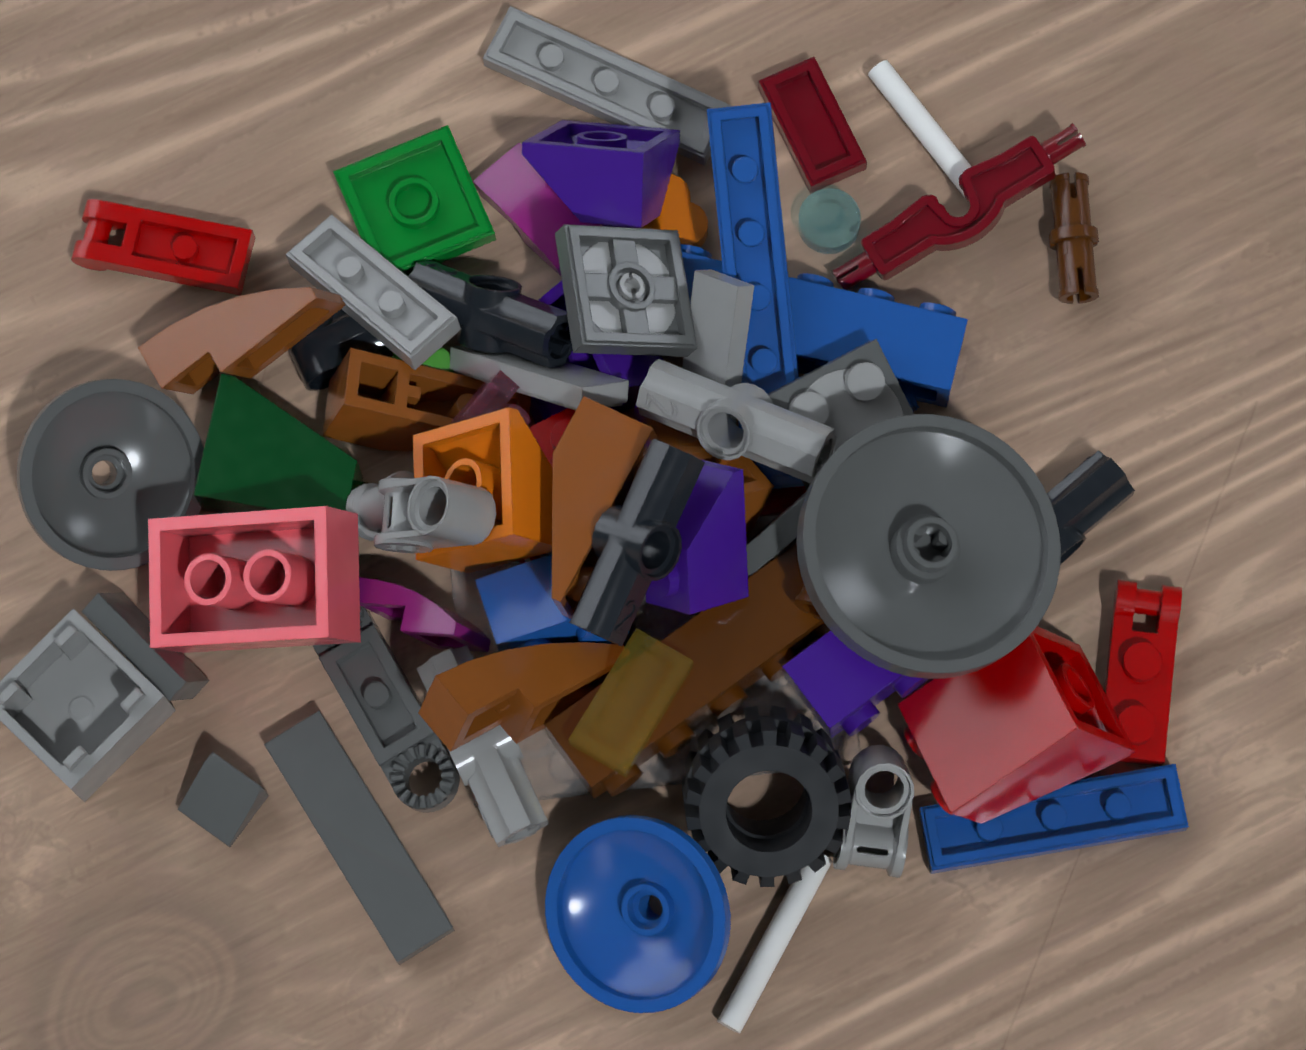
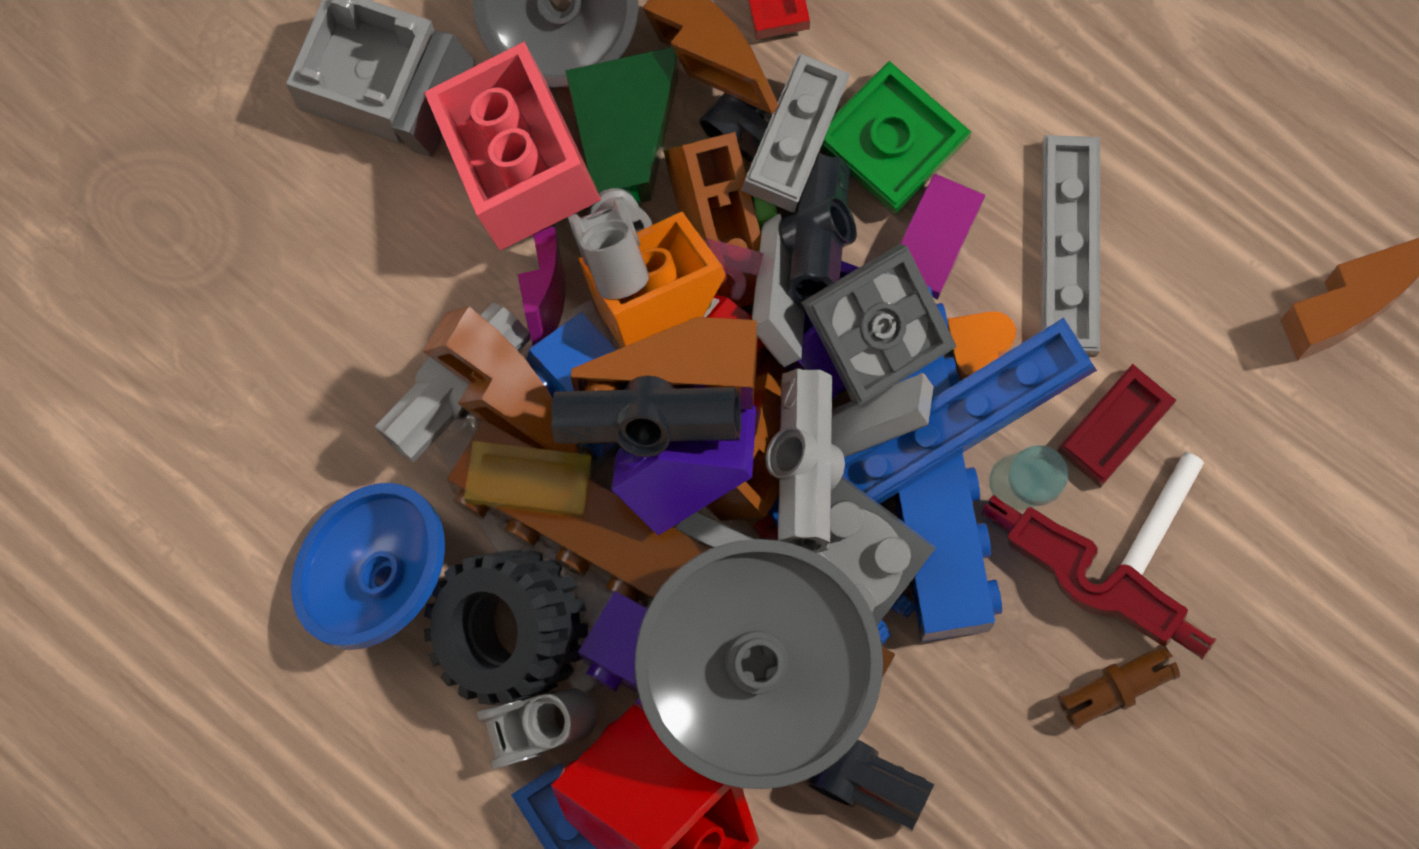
camera: 65 degrees right, 0 degrees up
(222, 799) = (339, 208): dark grey slope -> none
(359, 837) = (351, 325): dark grey tile -> none
(388, 715) = (472, 279): dark grey plate -> none
(606, 170) = (987, 268): dark purple slope -> none
(771, 948) = (391, 690): white bar -> none

